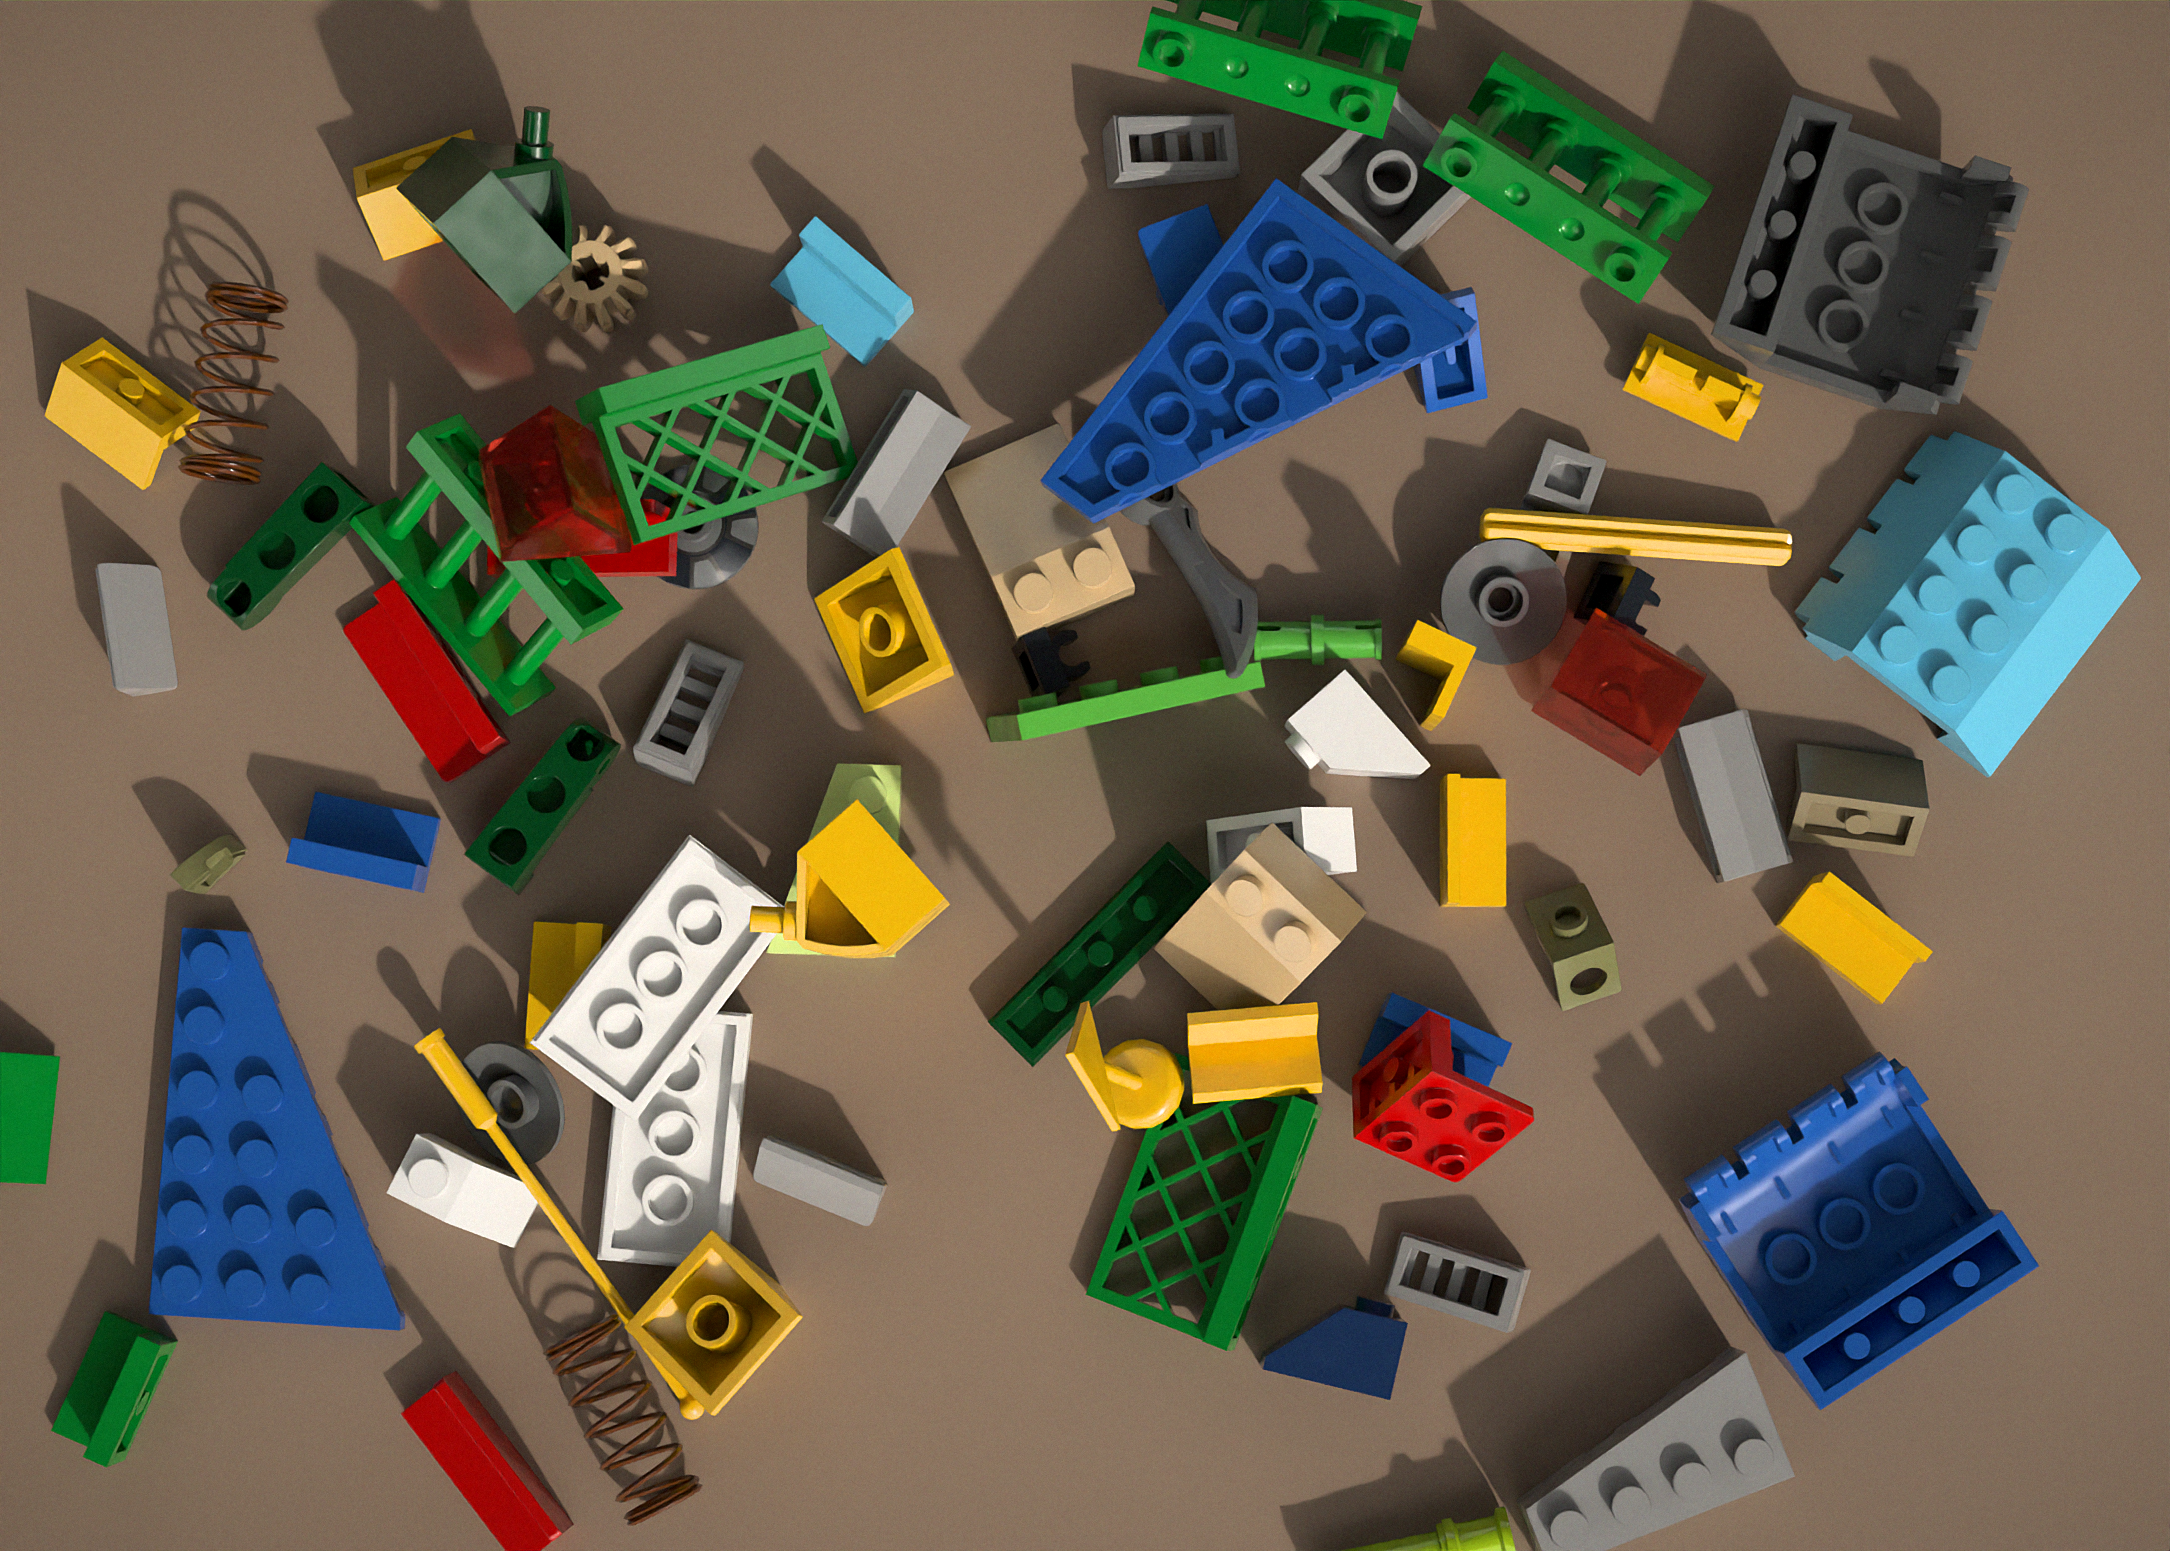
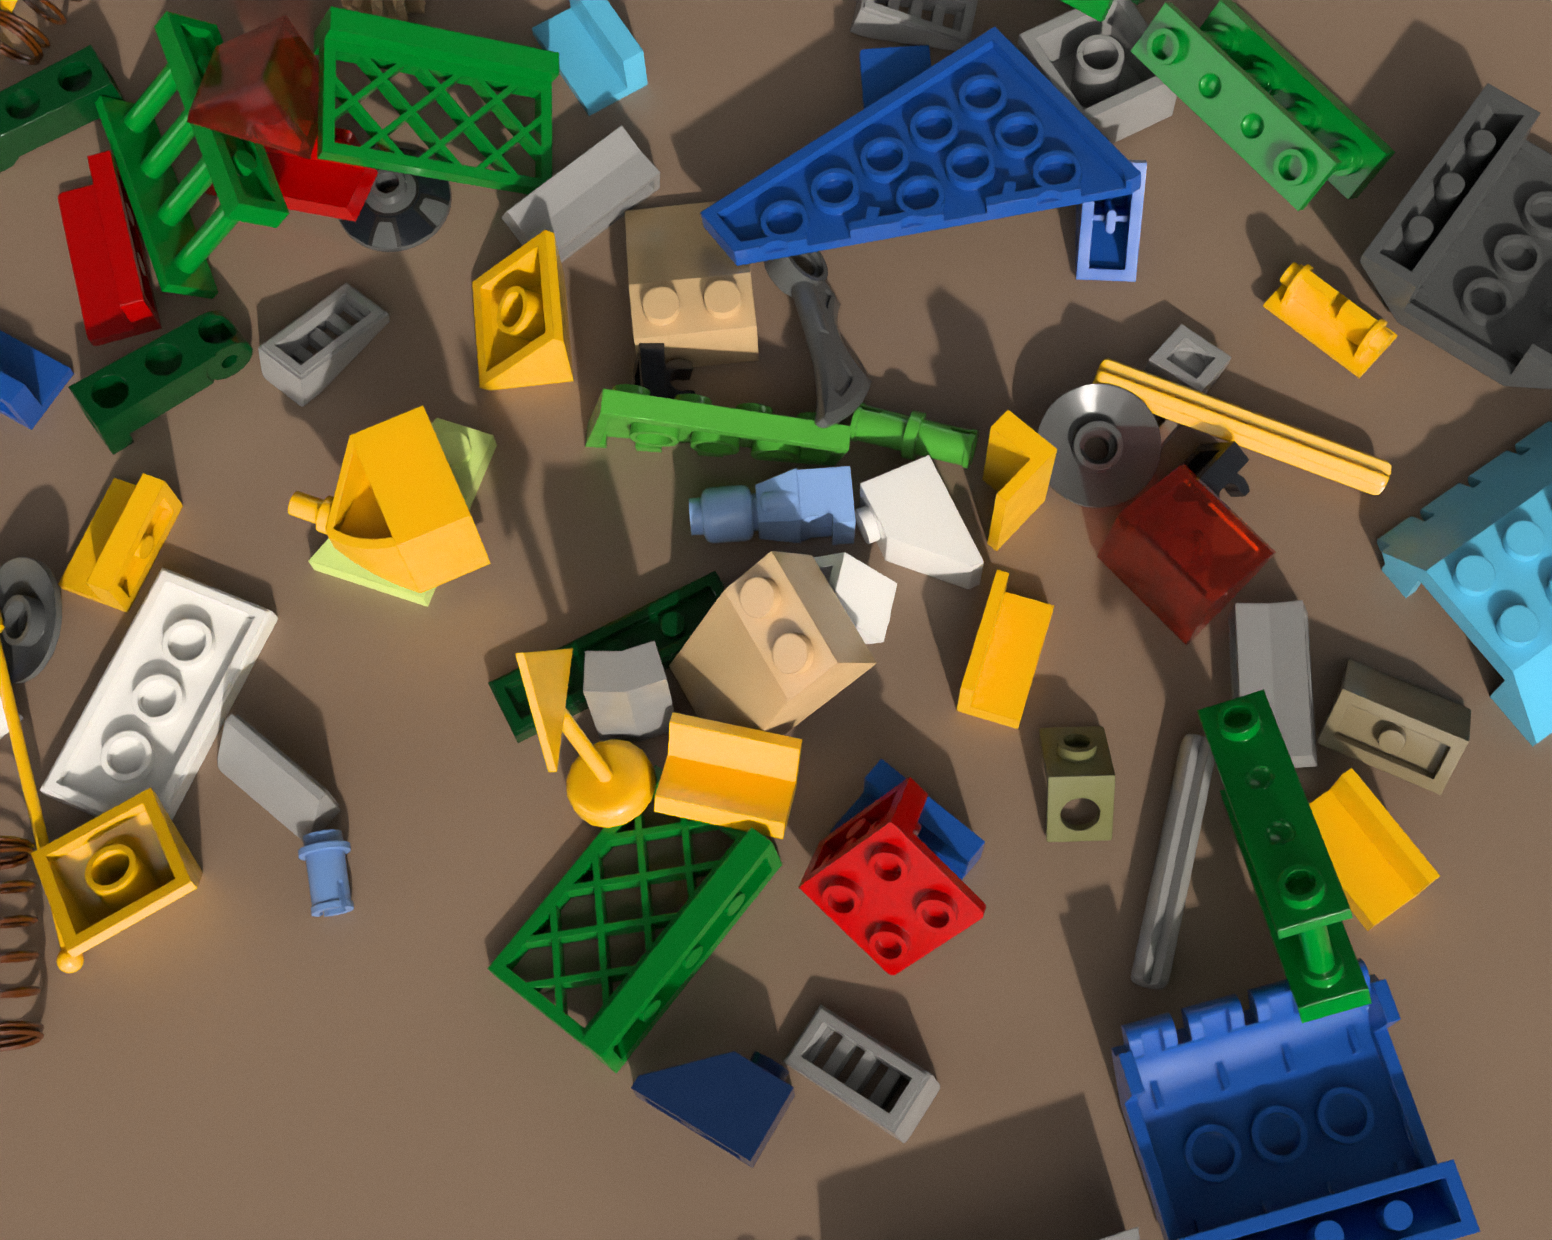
camera: 20 degrees right, 15 degrees down
(658, 979) = (191, 545): white tile -> none
(903, 1252) = (327, 872): none -> medium blue pin
(1141, 1007) = (628, 693): none -> light grey piece
(1210, 761) = (783, 508): none -> light blue piece
(1685, 995) = (1173, 864): none -> light grey axle
(1789, 988) = (1285, 857): none -> green fence

